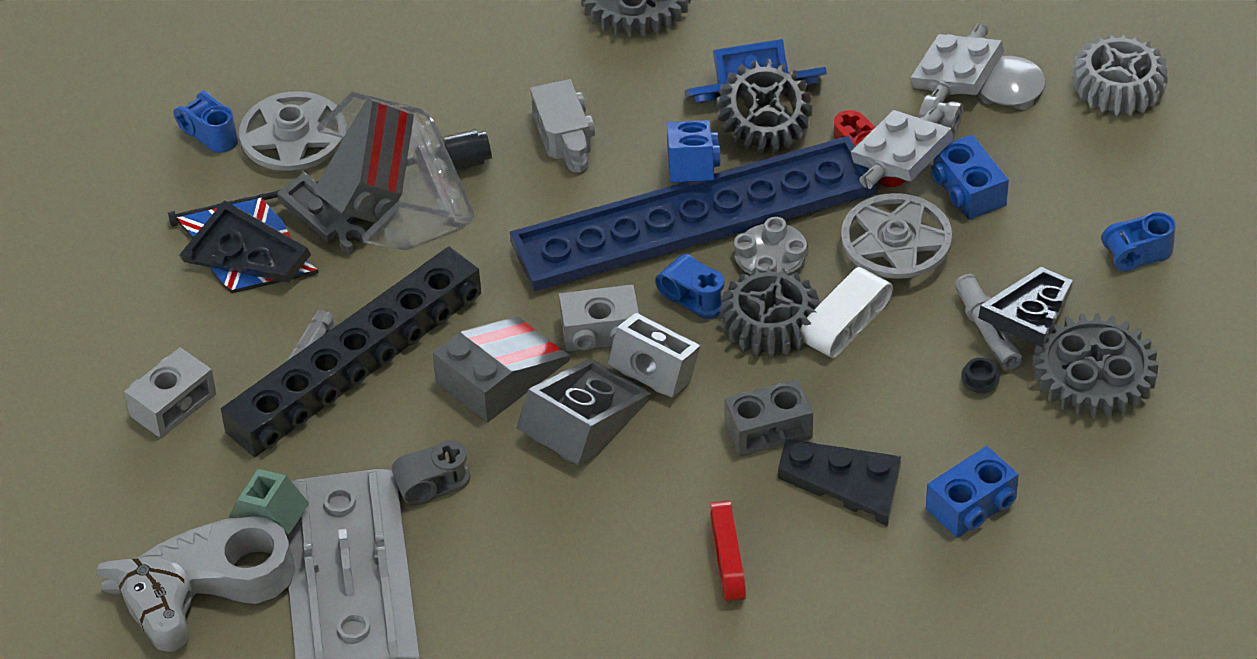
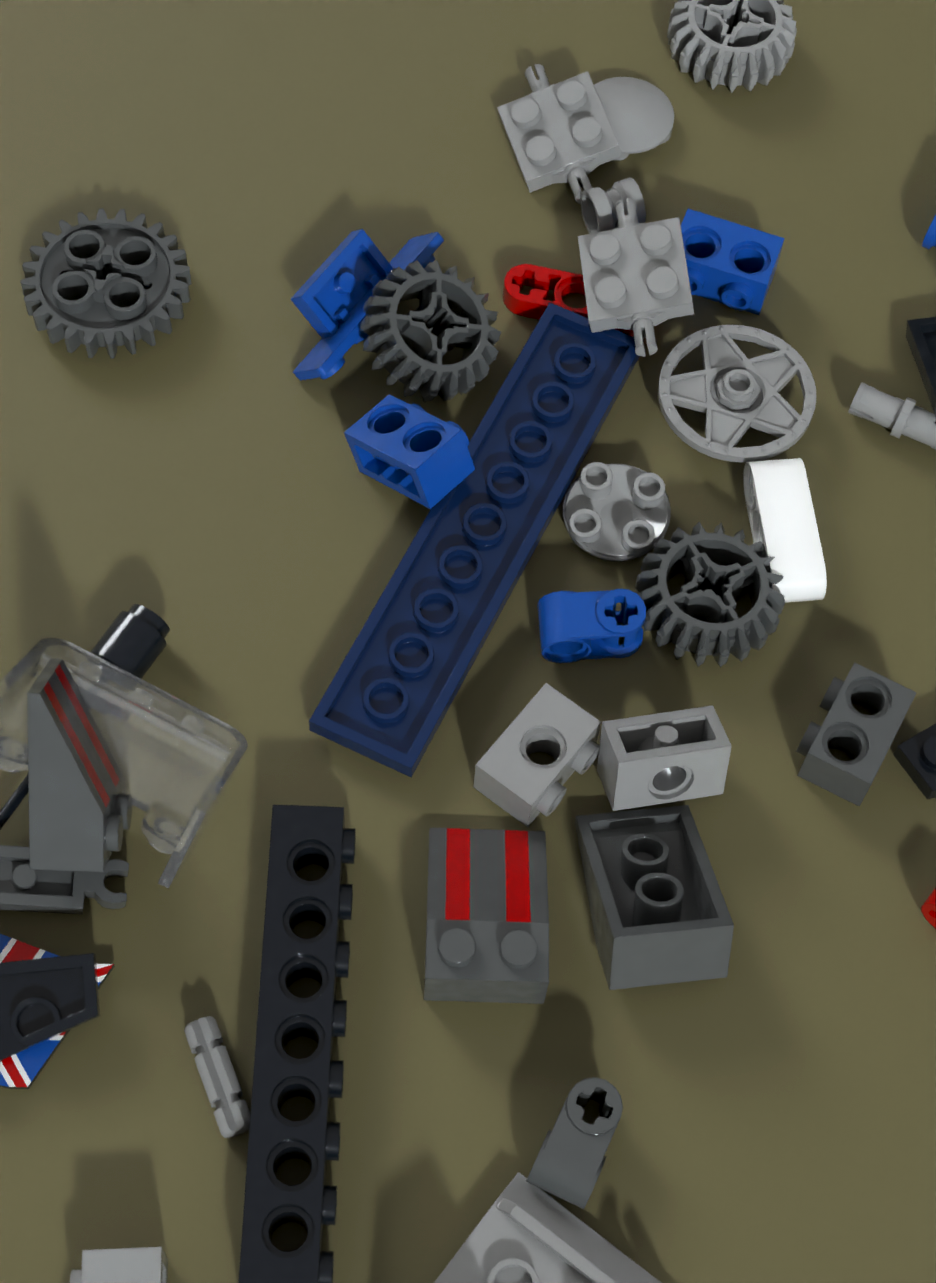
camera: 50 degrees left, 15 degrees up
(562, 122) = (209, 521): light grey hinge -> none

